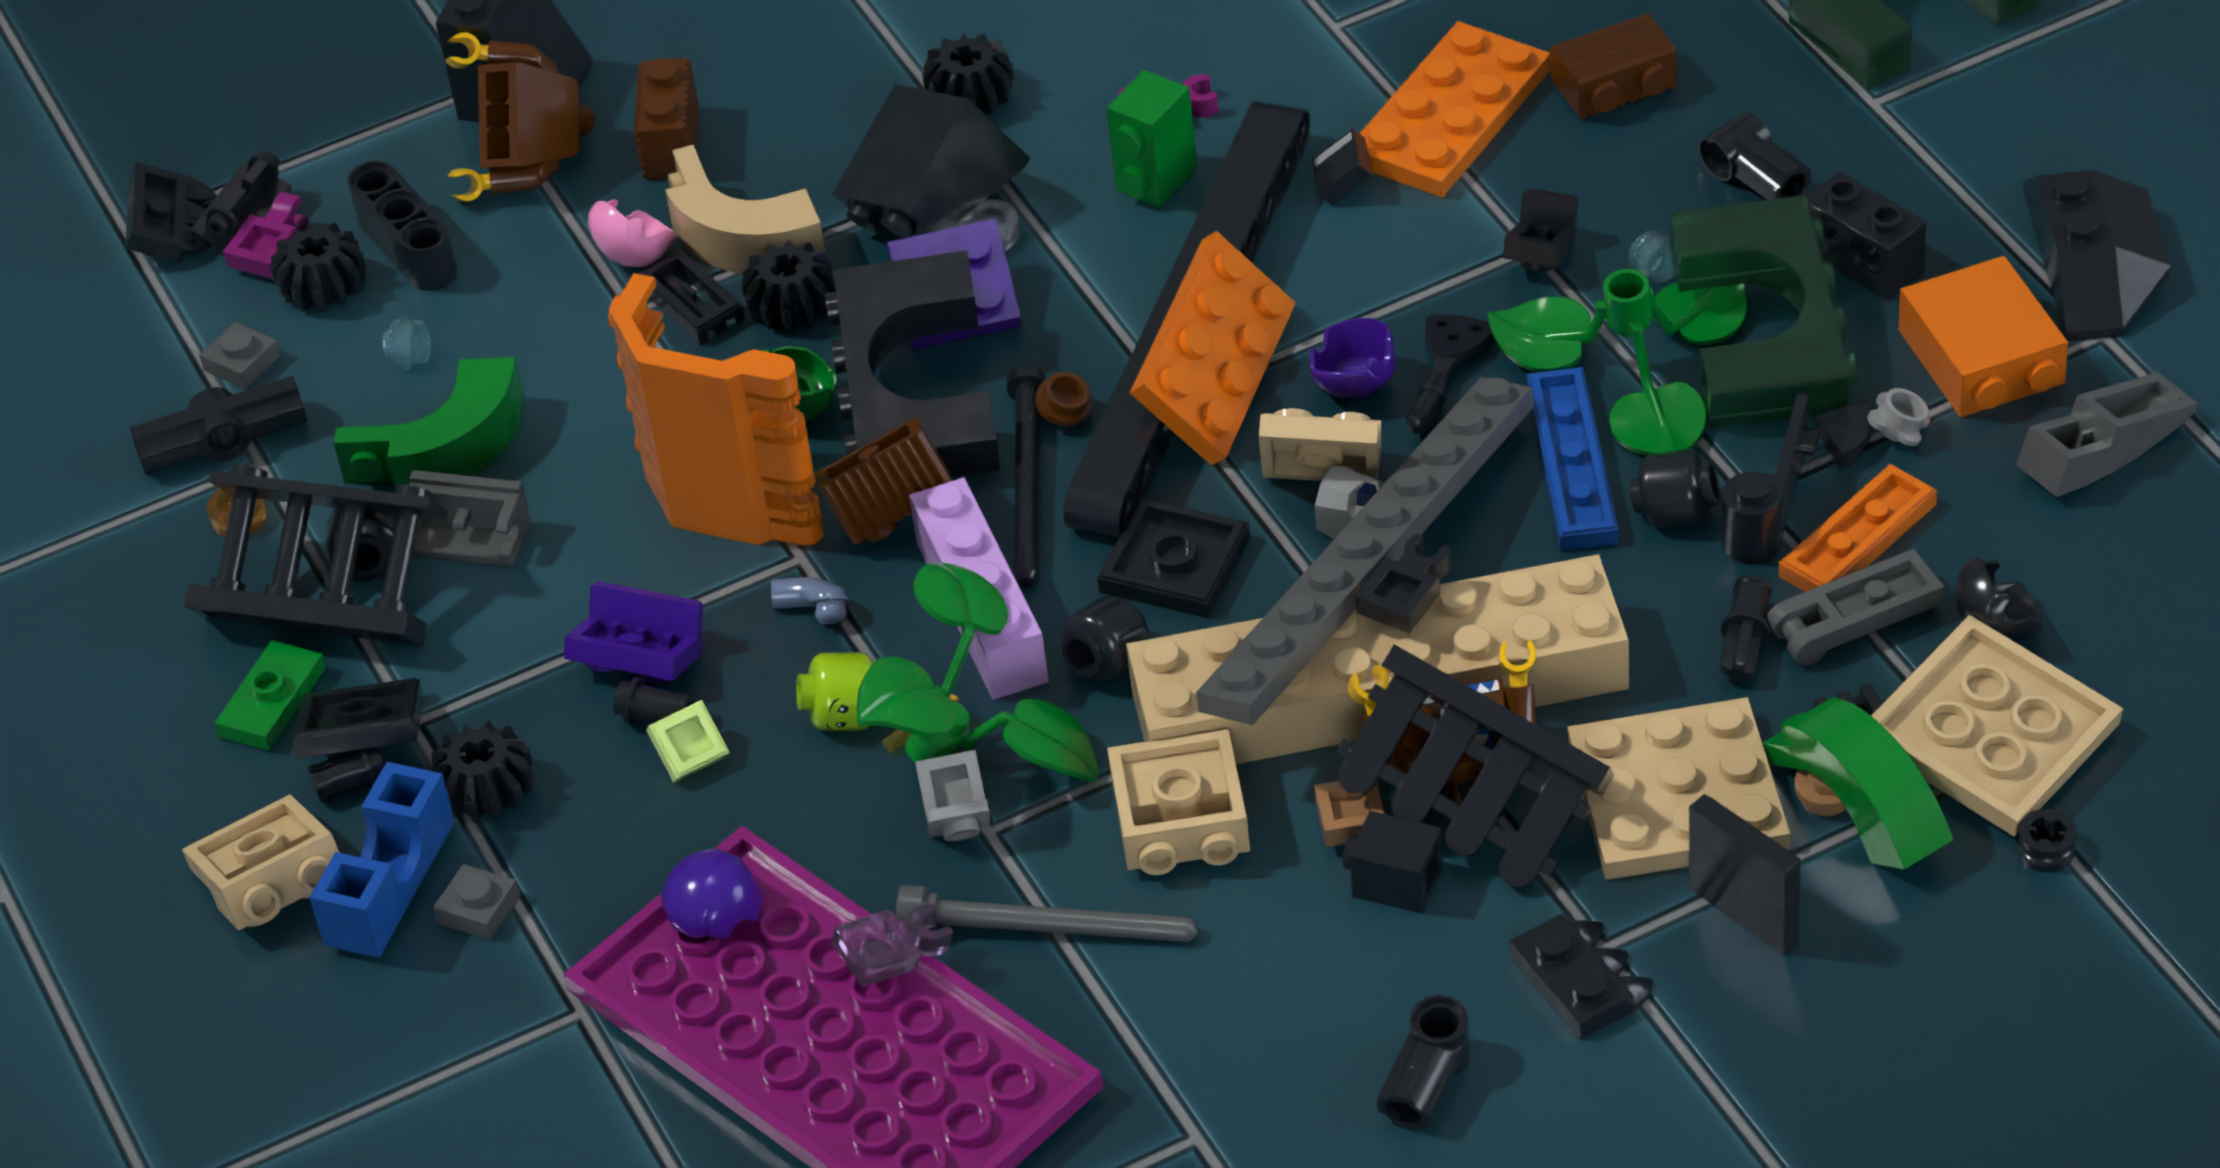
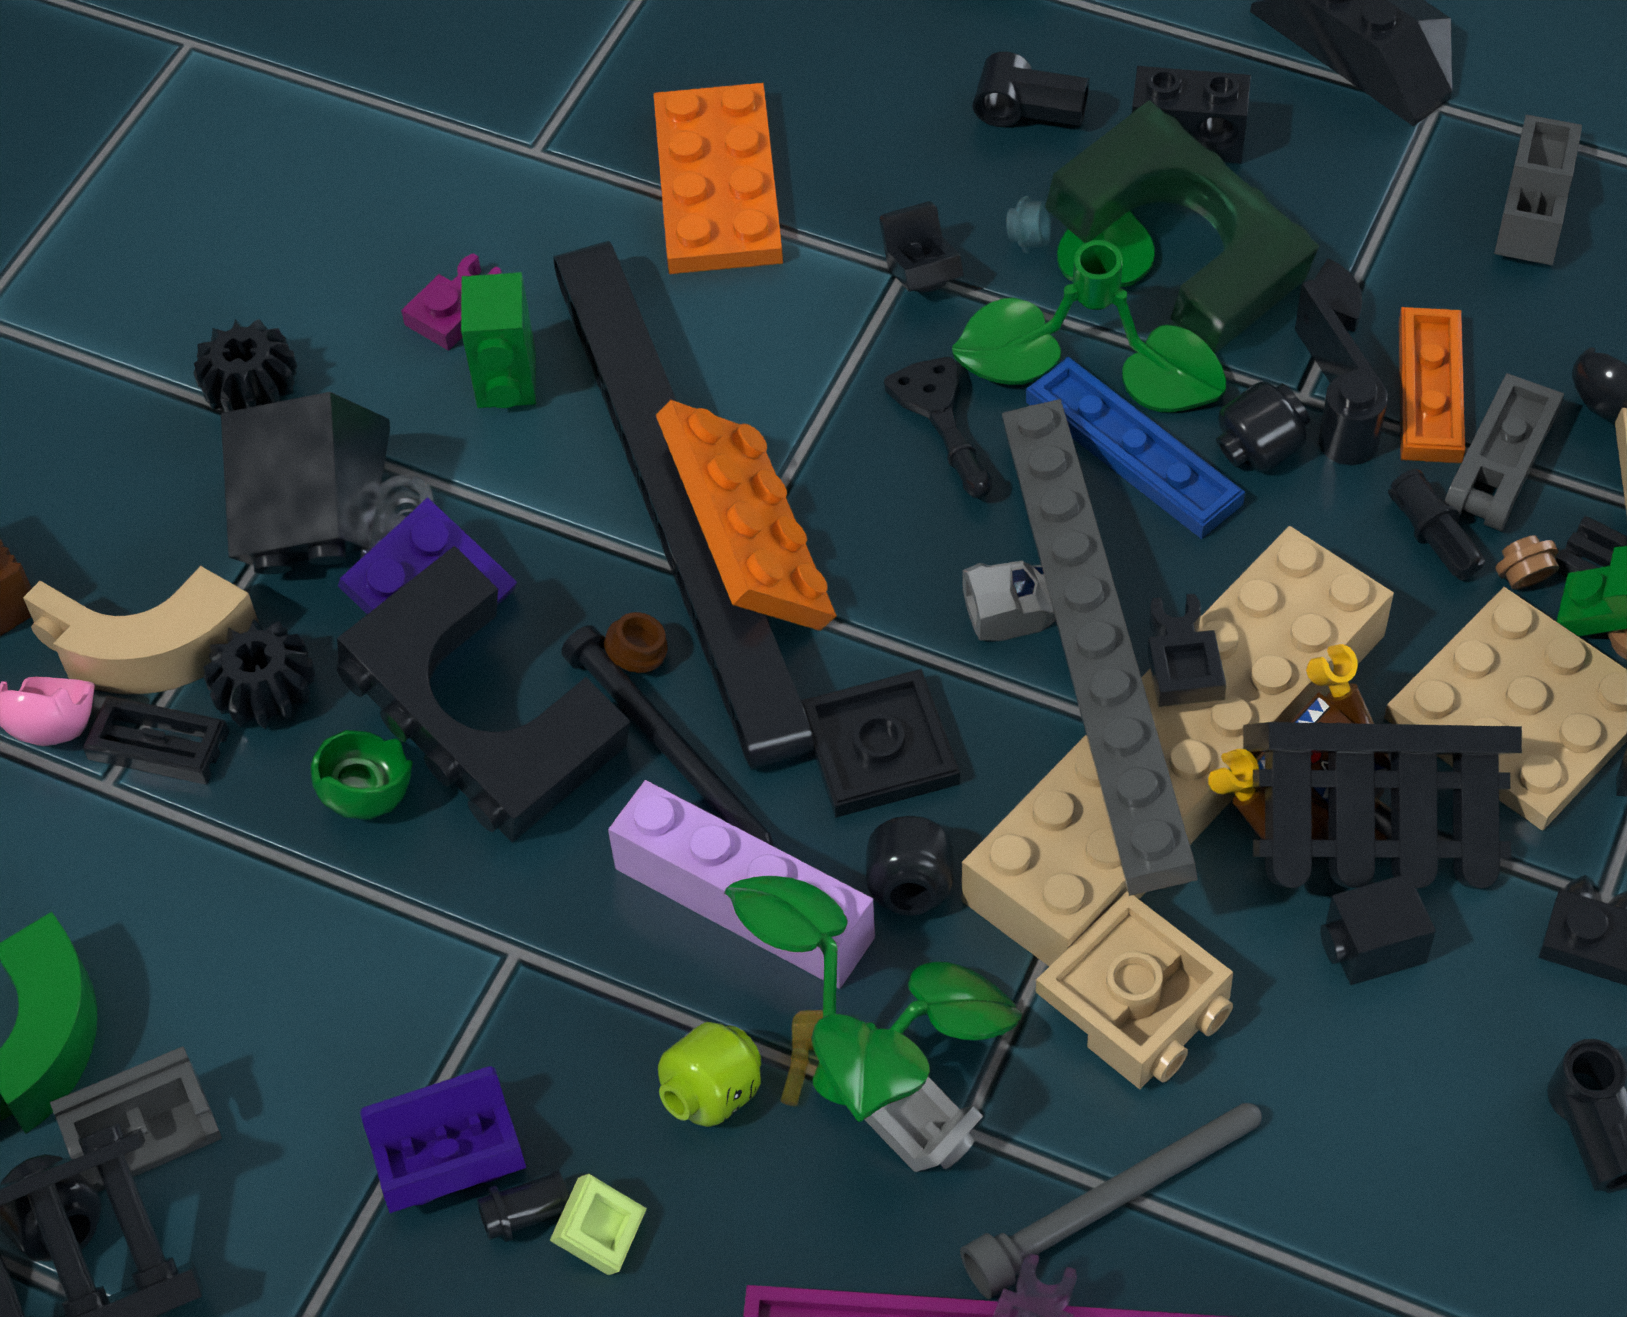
camera: 40 degrees left, 10 degrees up
(716, 433) = (374, 893): orange hinge -> none
(810, 592) = (575, 981): sand blue arm -> none
(874, 482) = (561, 827): reddish brown brick -> none
(1305, 445) = (919, 565): tan plate -> none
(1341, 166) = (681, 279): black tile -> none
(1343, 812) = (1284, 911): medium nougat plate -> none
(1354, 358) = (873, 455): dark purple hair -> none
(1614, 66) = (833, 67): reddish brown brick -> none
(1784, 690) = (1528, 562): none -> medium nougat plate
(1900, 416) = (1370, 259): light grey plate -> none
(1982, 336) = (1368, 155): orange brick -> none

